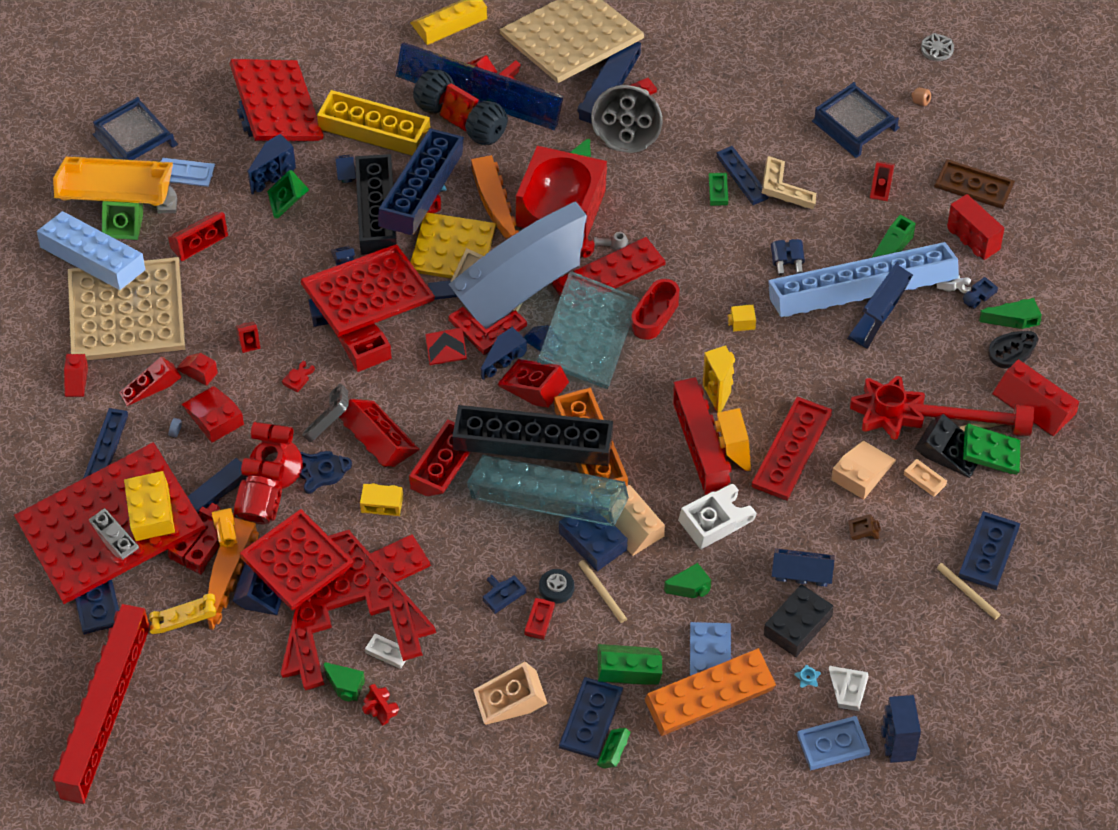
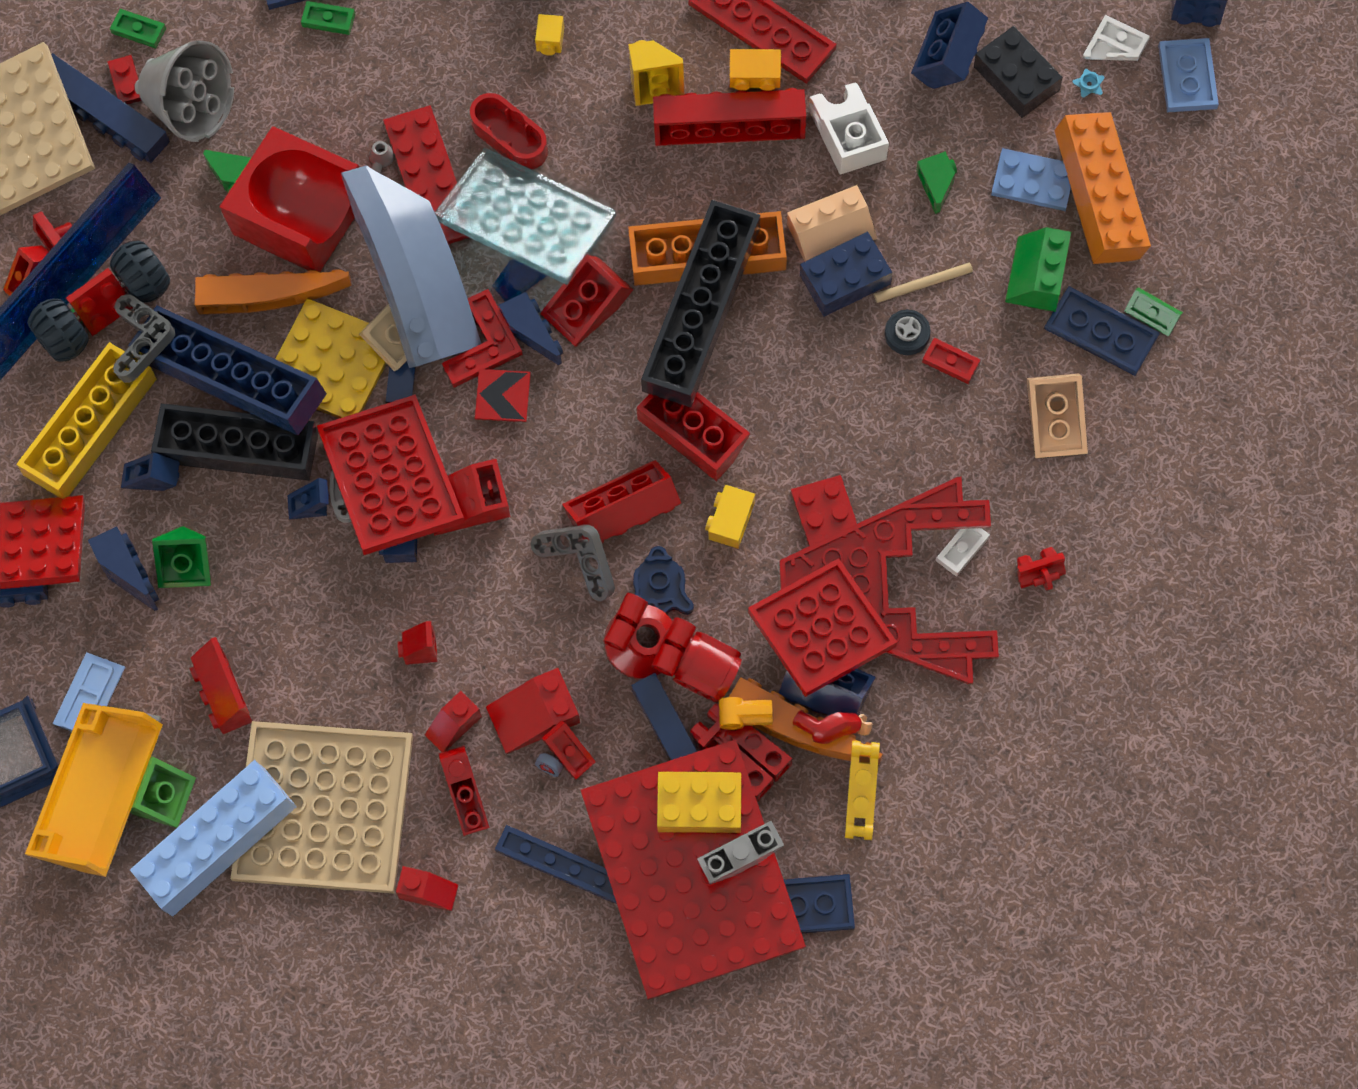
camera: 75 degrees left, 15 degrees up
(101, 704) = (982, 908): red brick -> none
(185, 433) = (568, 749): none -> red plate
(225, 584) = (833, 726): none -> red arm
(298, 378) = (501, 594): red plate -> none
(345, 681) = (1001, 605): green slope -> none
(435, 137) = (149, 331): none -> dark grey beam
(503, 593) = (904, 396): dark blue plate -> none
(548, 490) = (779, 306): clear light blue brick -> none
(678, 87) = (138, 28): none -> green plate

